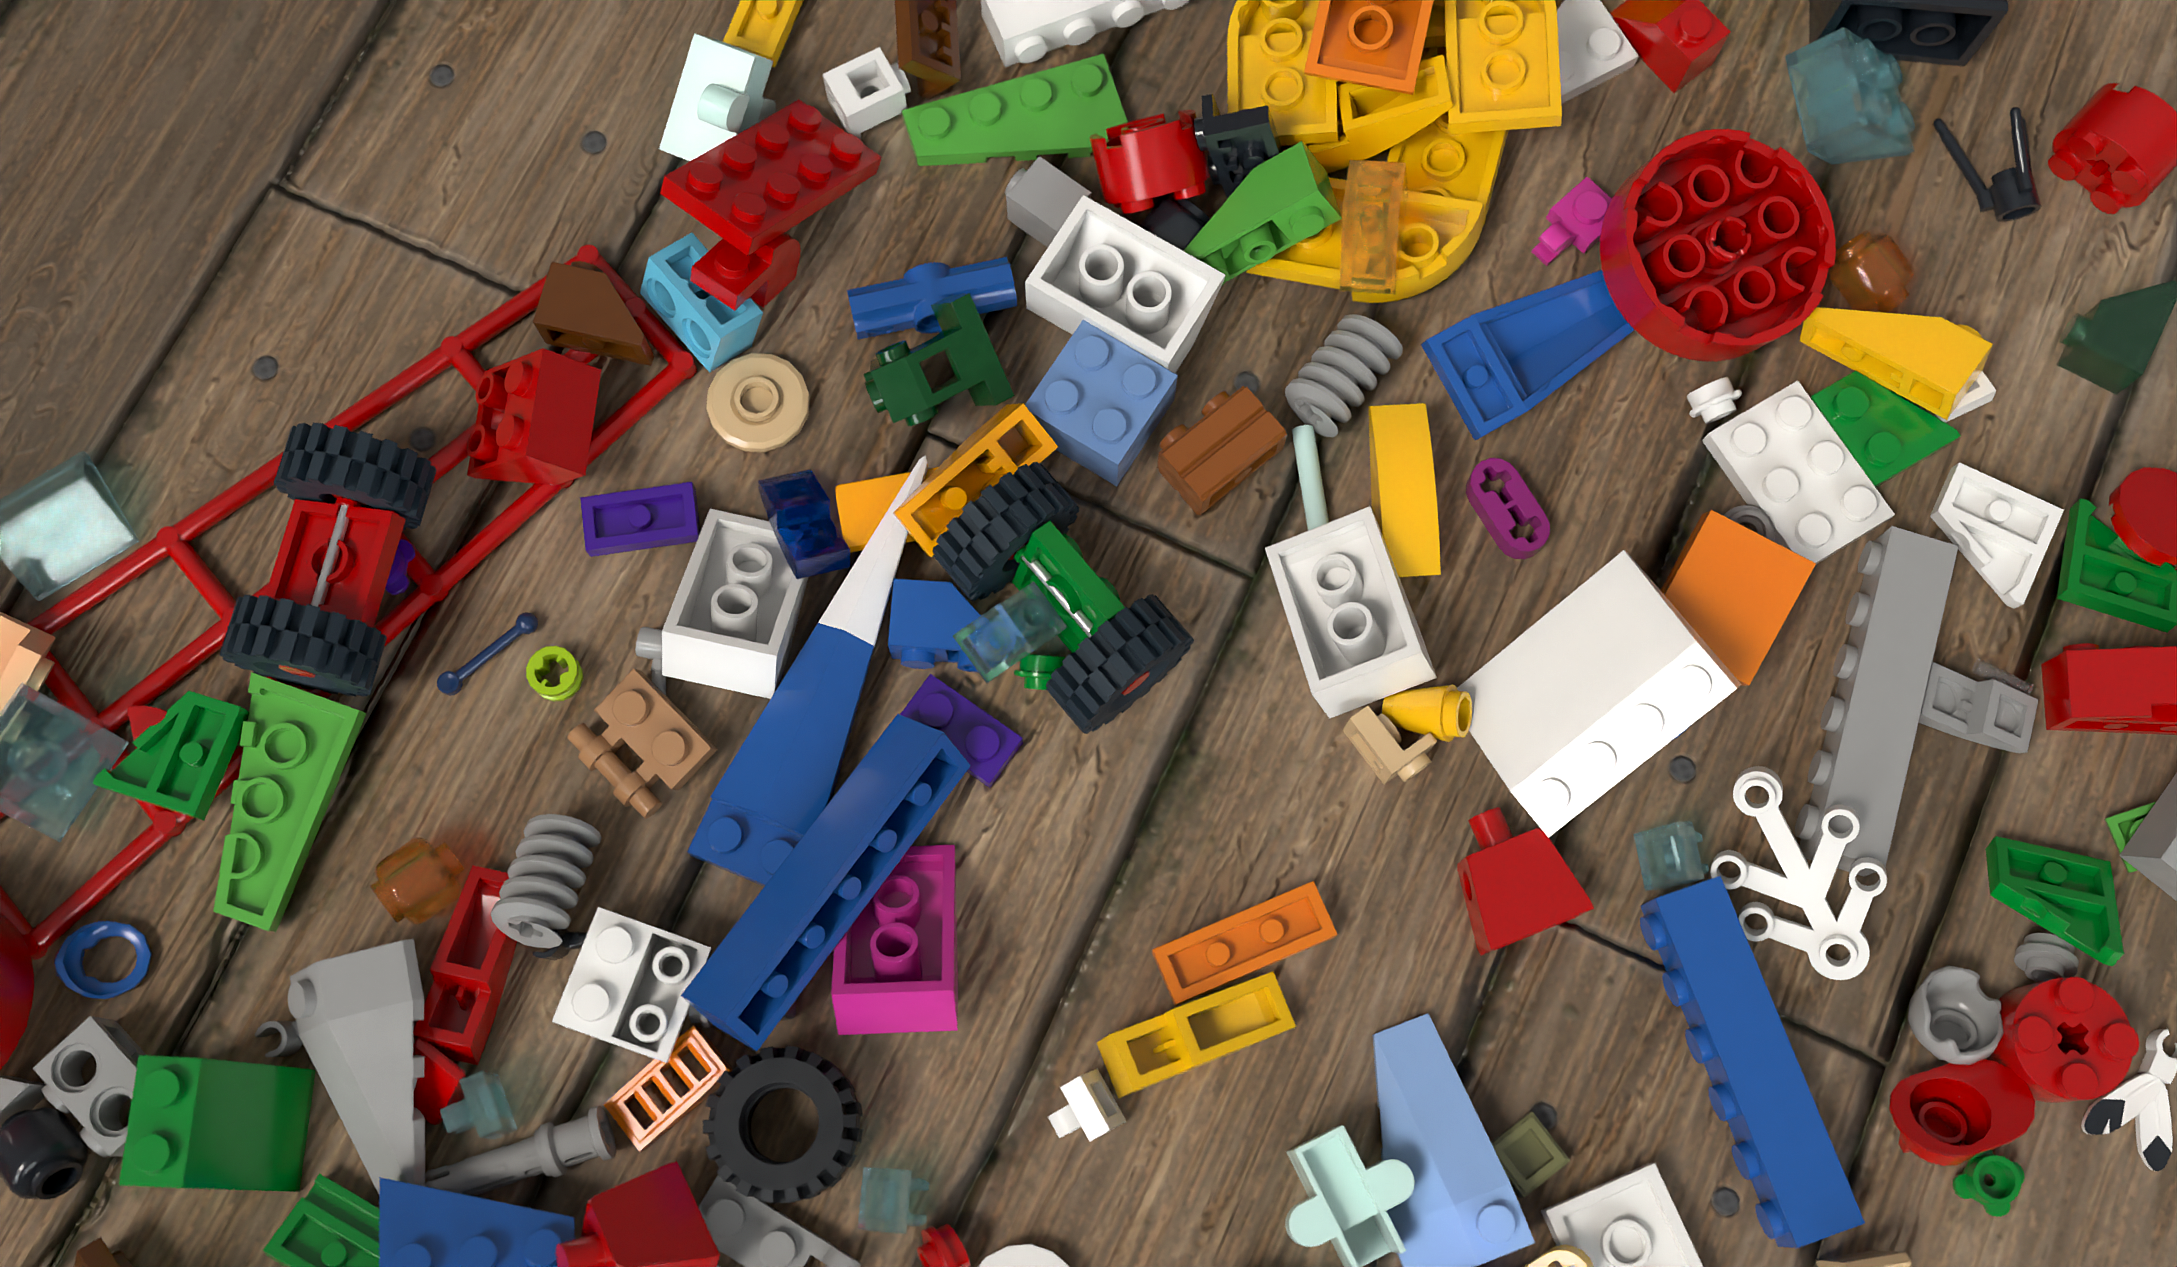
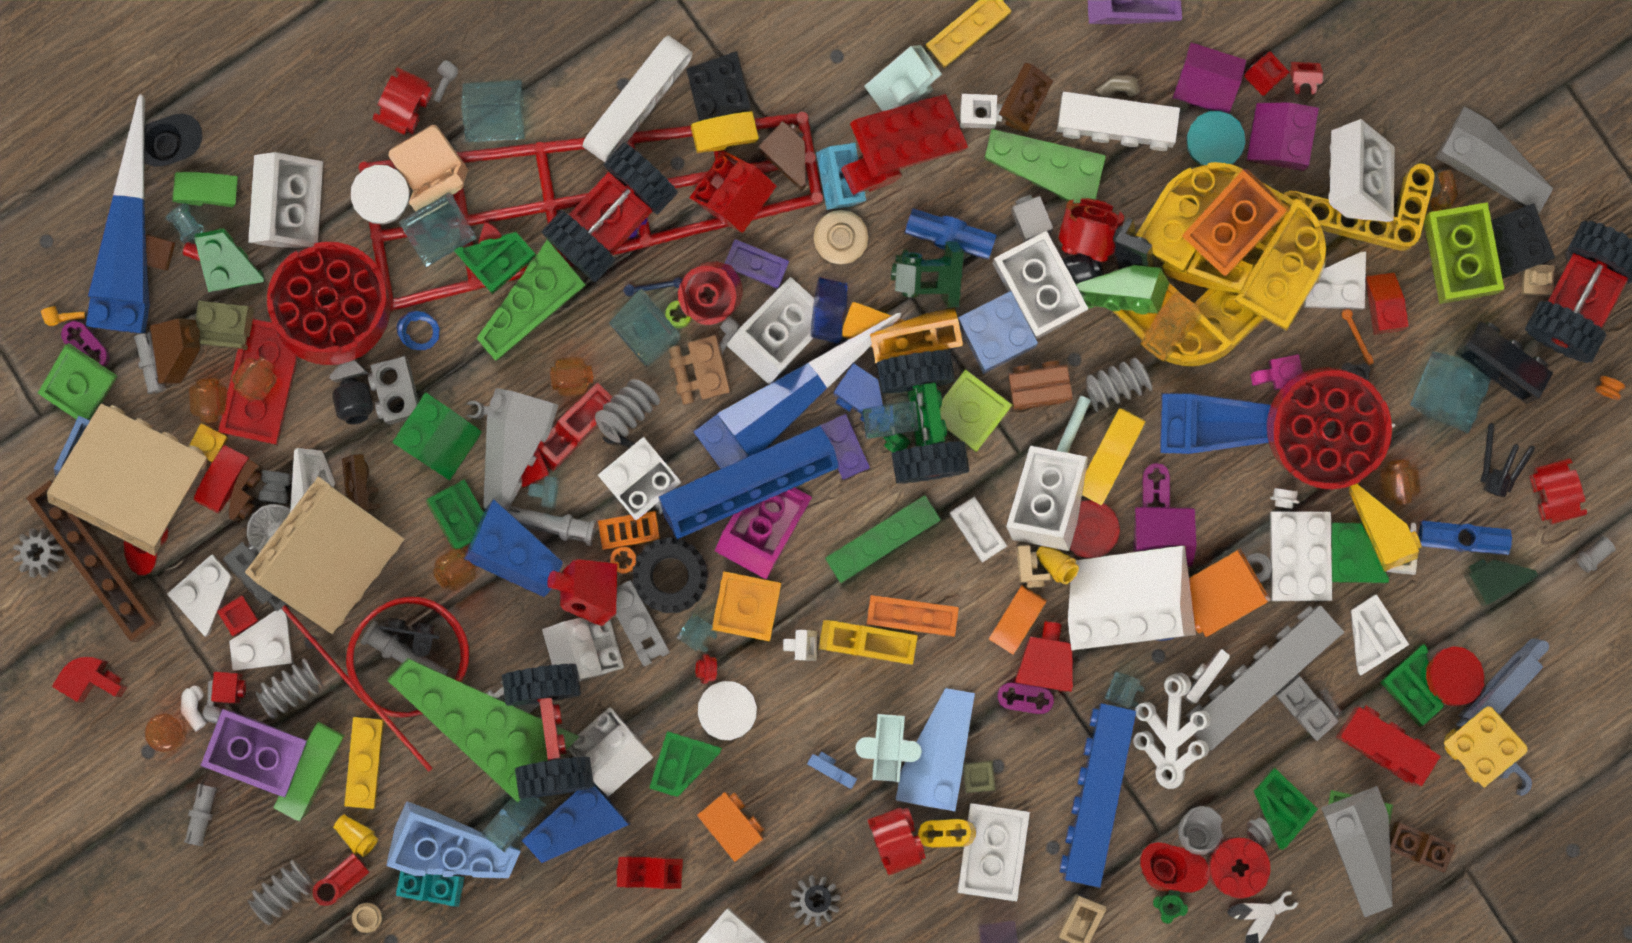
camera: 35 degrees right, 10 degrees up
(292, 361) = (638, 98): none -> white beam
(426, 282) = (719, 87): none -> black hinge
(459, 340) = (724, 131): none -> yellow slope
(507, 725) = (645, 328): none -> clear light blue slope
(551, 600) = (717, 277): none -> red brick
(668, 1137) = (631, 554): none -> orange bush
(949, 1099) = (746, 606): none -> light orange plate
(1114, 846) = (882, 539): none -> green plate
(1138, 544) = (972, 410): none -> lime plate
(1264, 734) = (978, 529): none -> white plate
(1422, 845) = (1017, 619): none -> orange slope
(1456, 625) = (1095, 530): none -> red tile
(1522, 983) = (1025, 690): none -> magenta beam
(1563, 553) = (1164, 529): none -> magenta slope
(1617, 84) = (1347, 315): none -> orange hinge
(1786, 746) = (1205, 675): none -> white plate
(2046, 289) = (1483, 539): none -> blue piece

